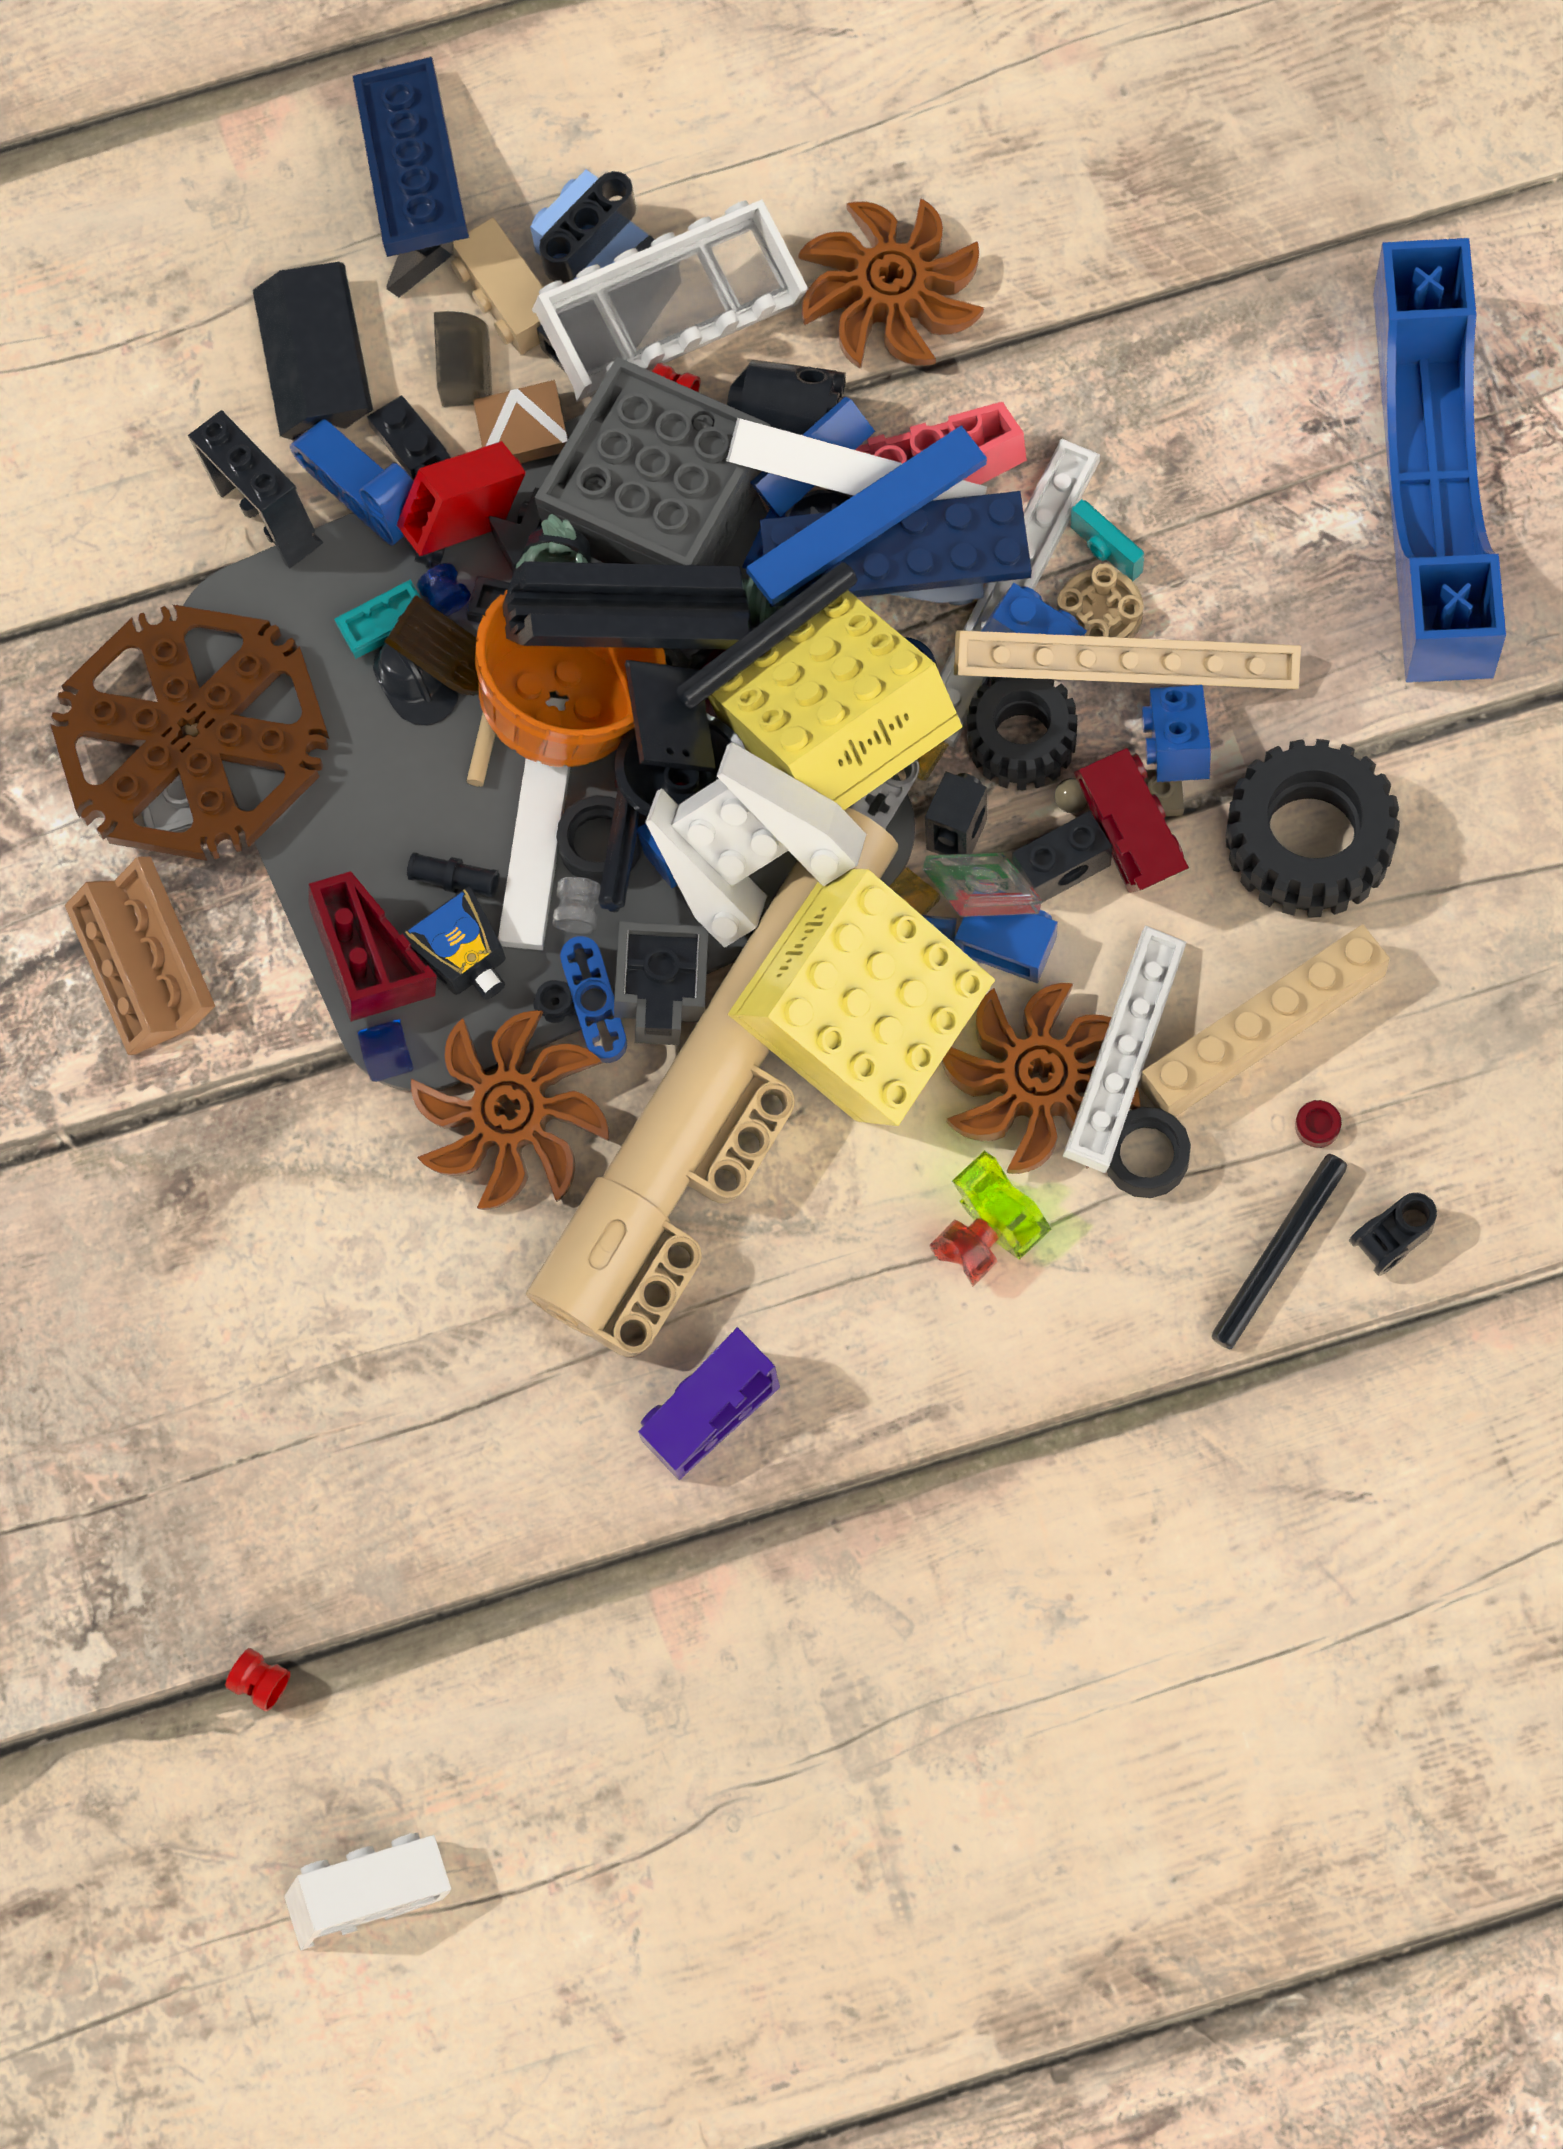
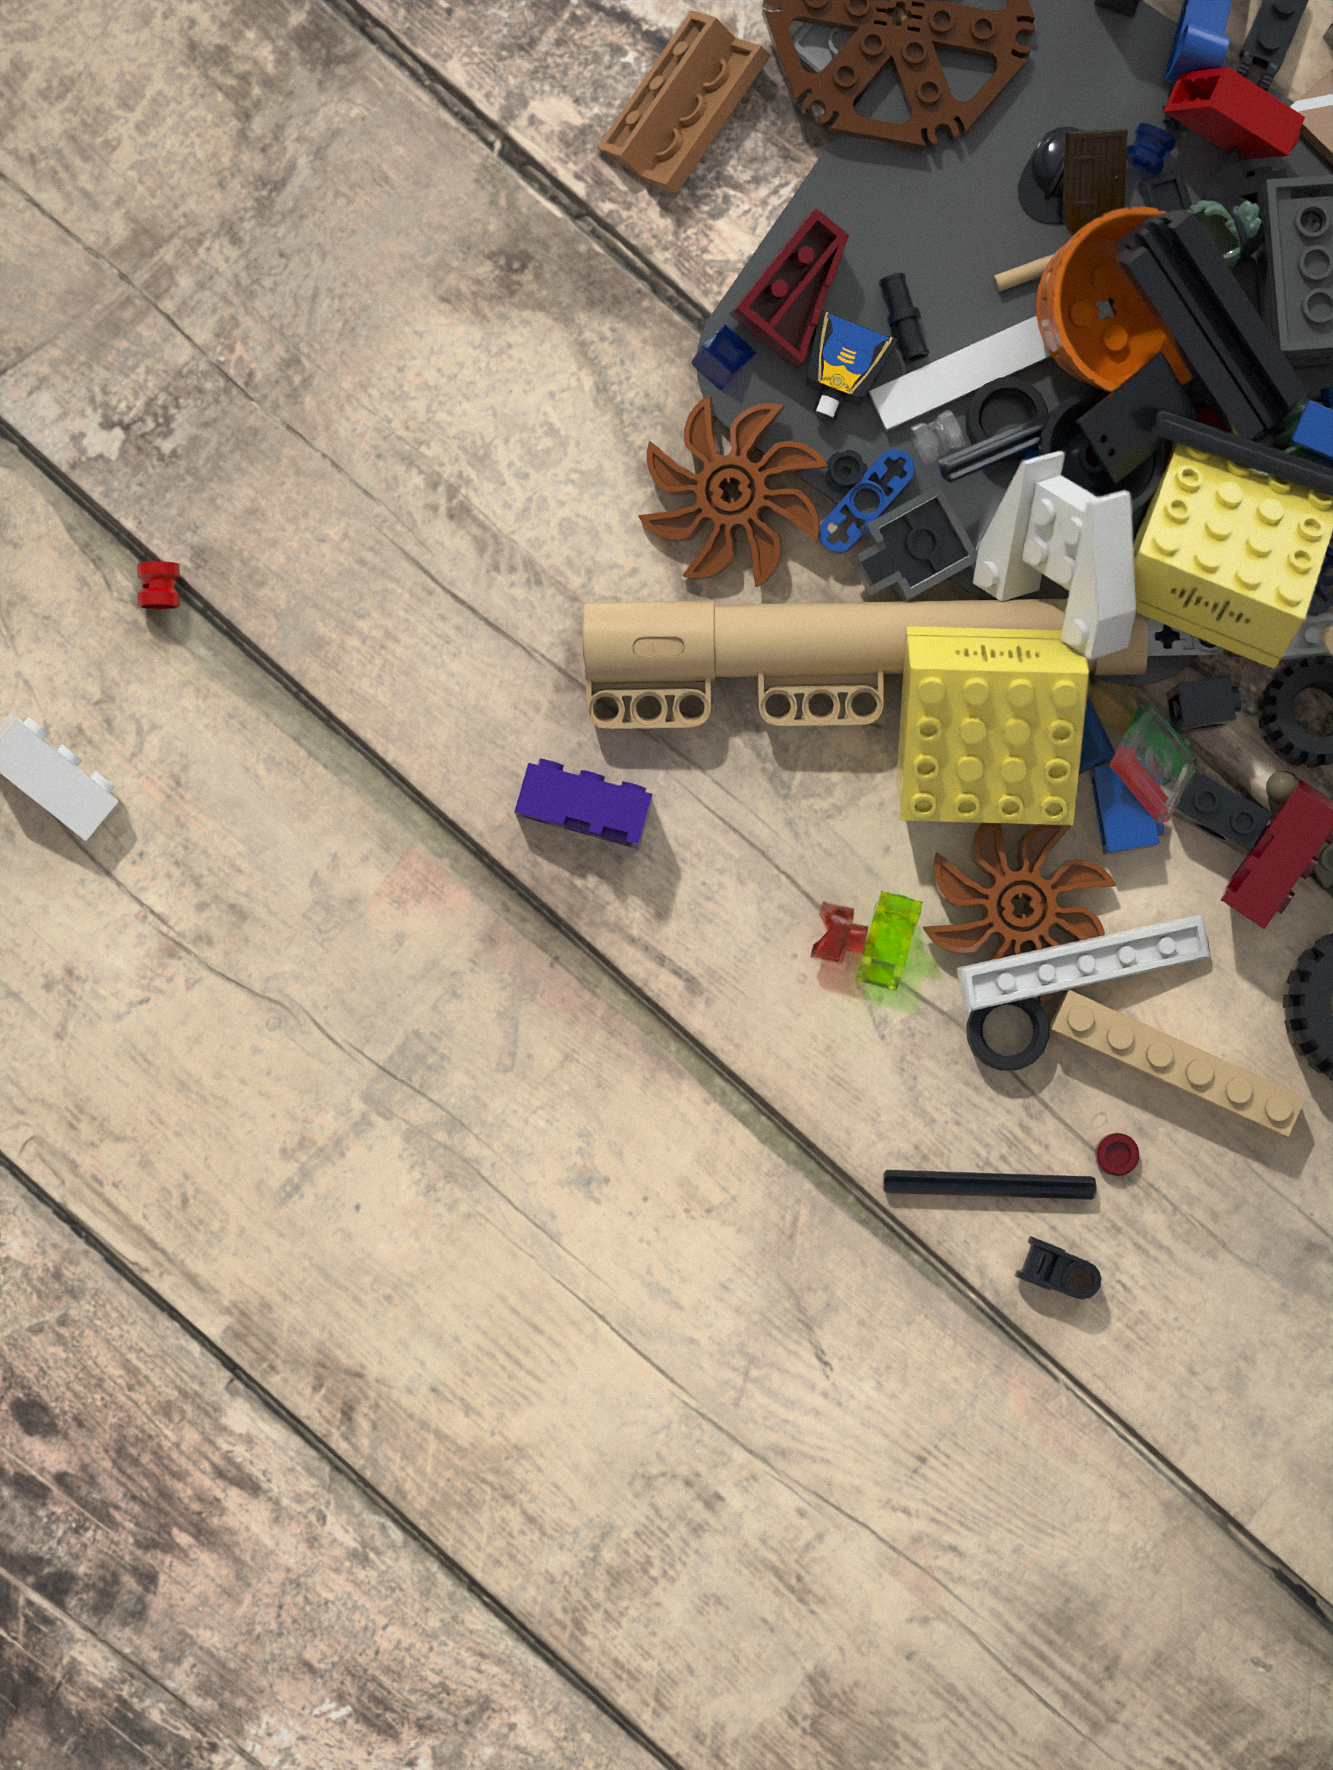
camera: 45 degrees right, 15 degrees up
(372, 621) = (1090, 109): teal plate -> none

